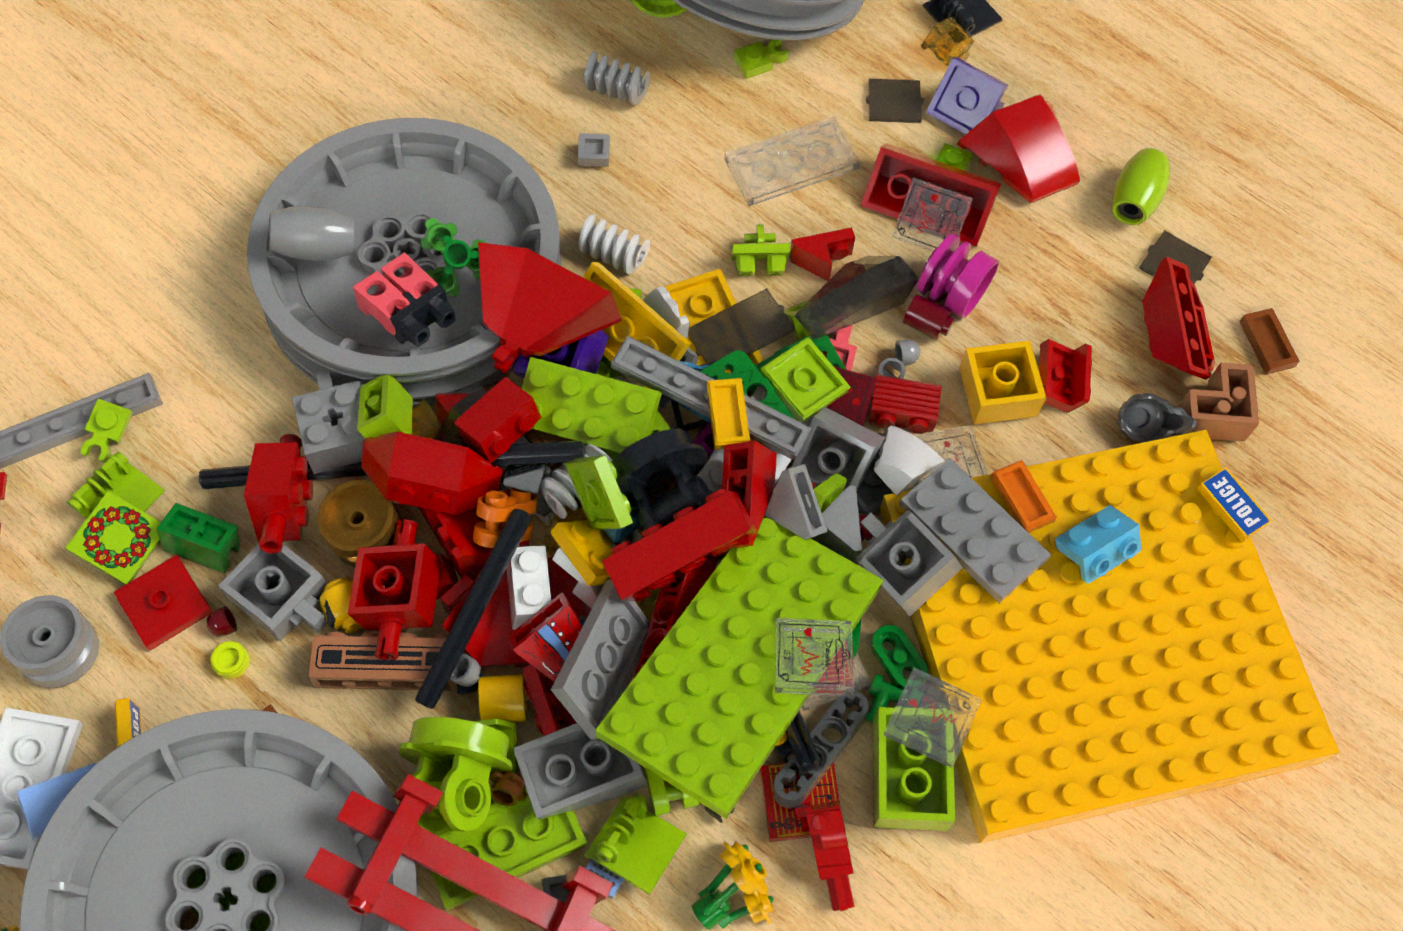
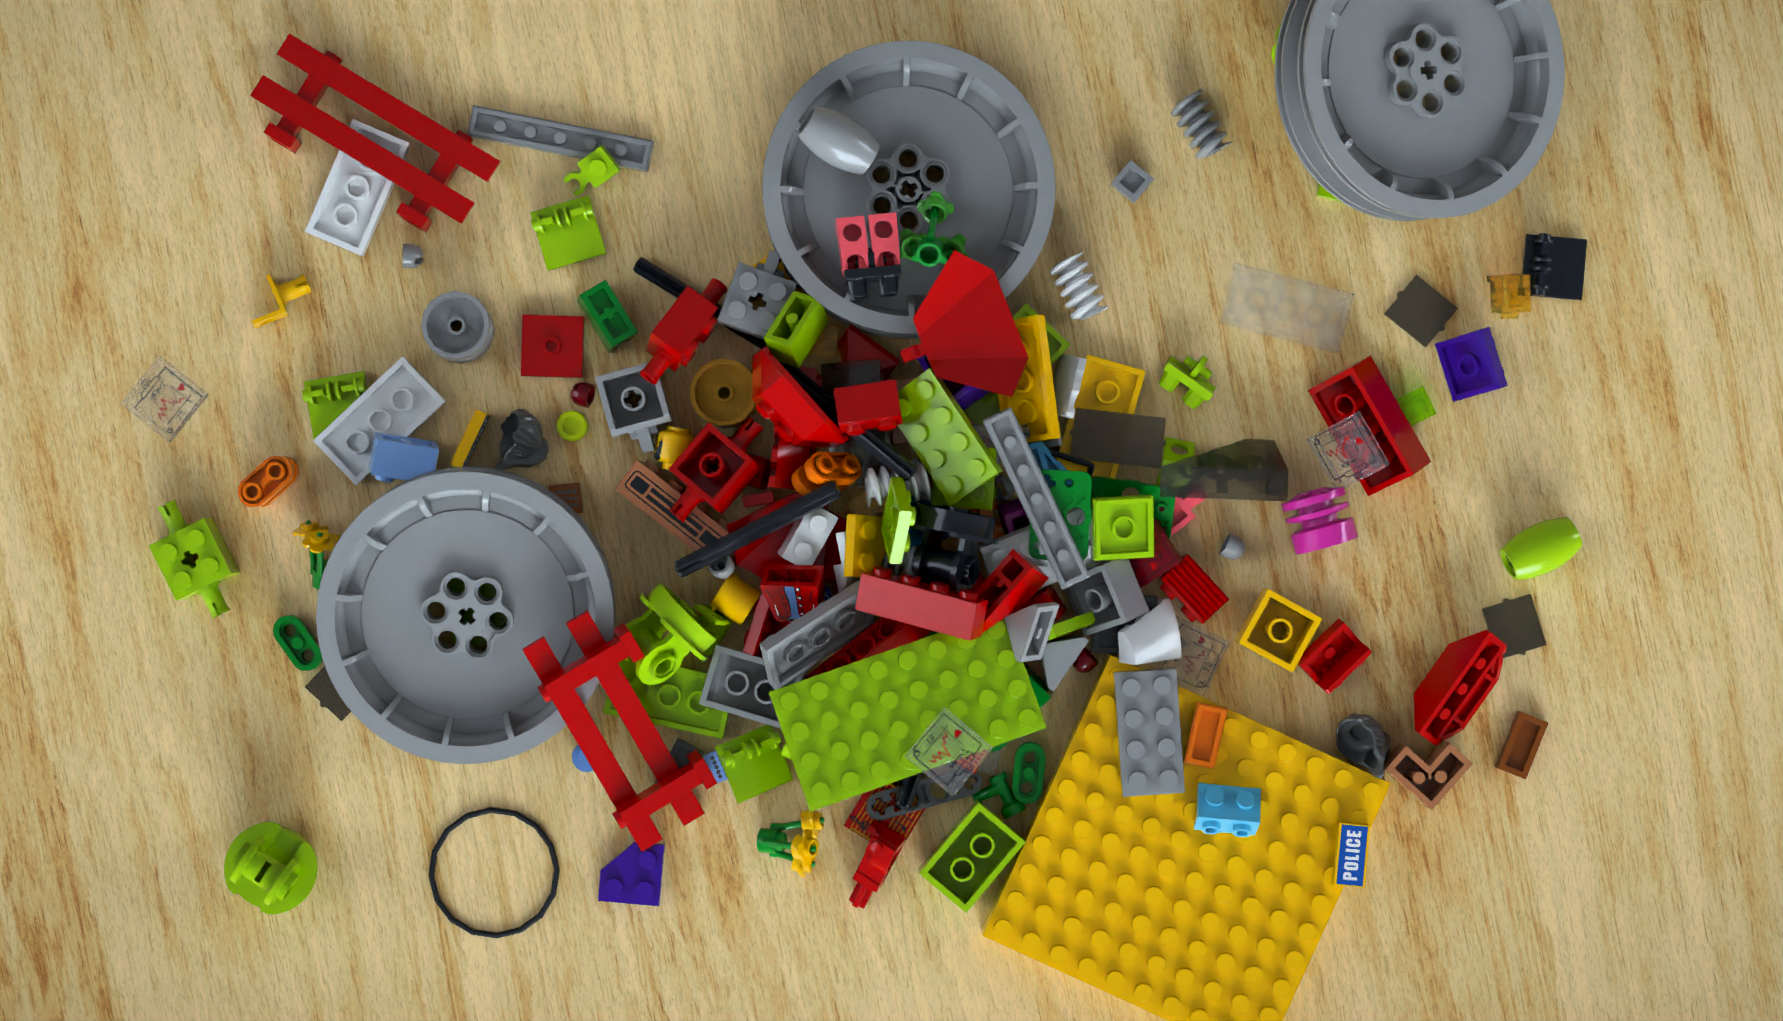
camera: 40 degrees right, 25 degrees up
(116, 538) = (549, 273): tile -> none
(183, 694) = (521, 441): none -> dark grey hair
(507, 788) = (693, 668): reddish brown plate -> none
(524, 477) = (858, 458): dark grey slope -> none
(727, 412) = (1036, 524): yellow tile -> none
(817, 250) = (1230, 411): red slope -> none
(896, 364) = (1202, 555): light grey hinge -> none
(896, 542) = (1076, 704): light grey hinge -> none
(928, 317) = (1272, 532): dark red brick -> none
(932, 717) = (1007, 837): clear tile -> none
(1025, 148) = (1482, 445): red wedge -> none

